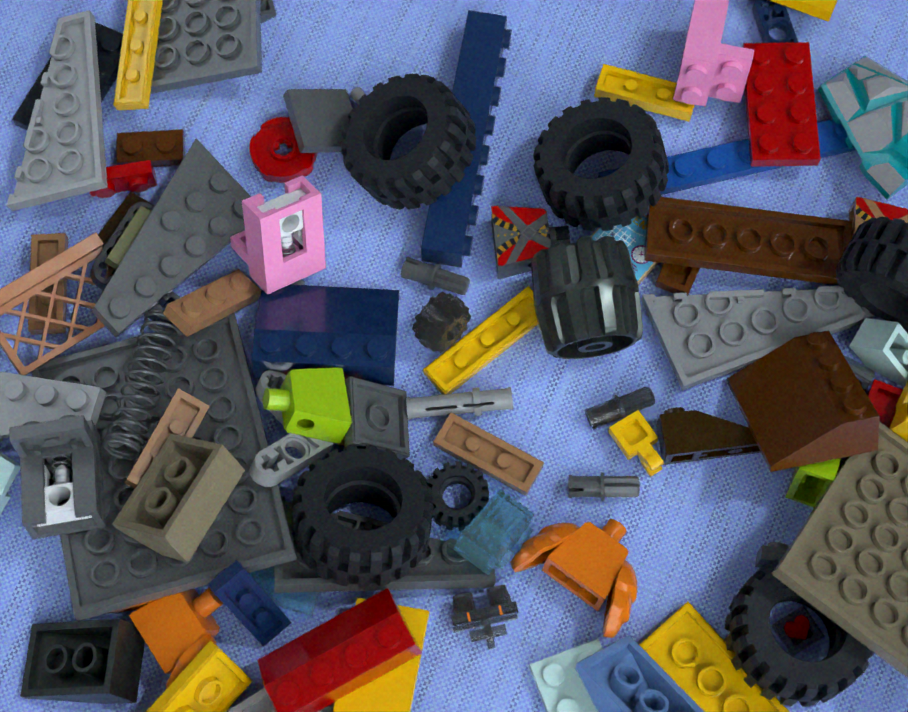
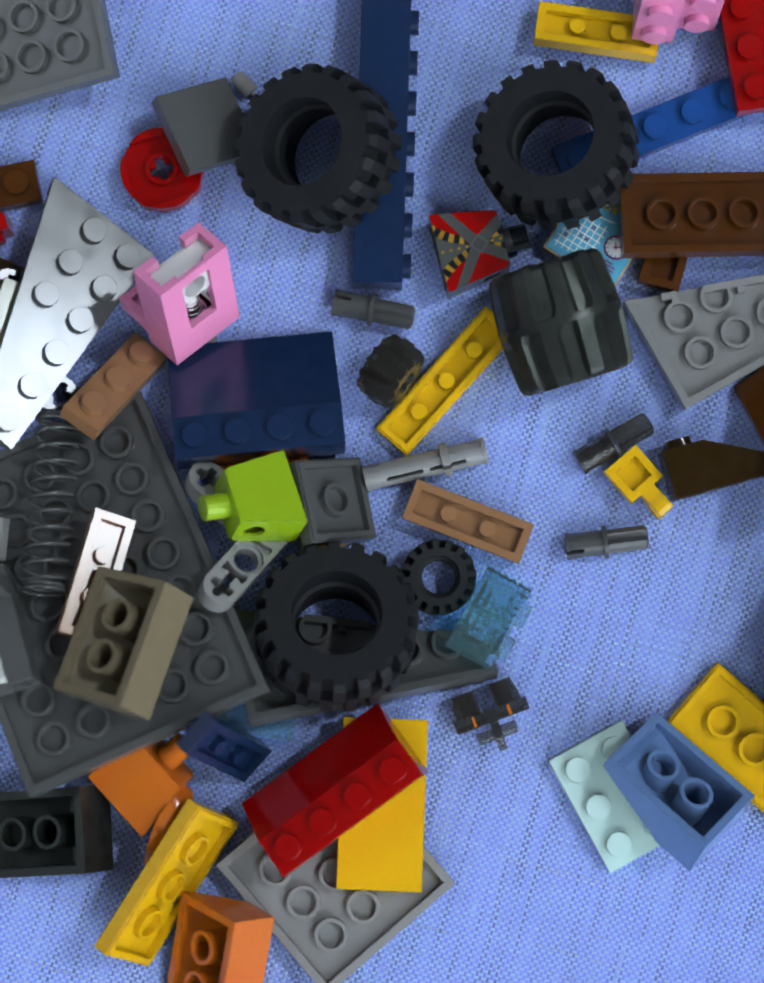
camera: 10 degrees left, 15 degrees up
(587, 564) = (601, 639): orange torso -> none

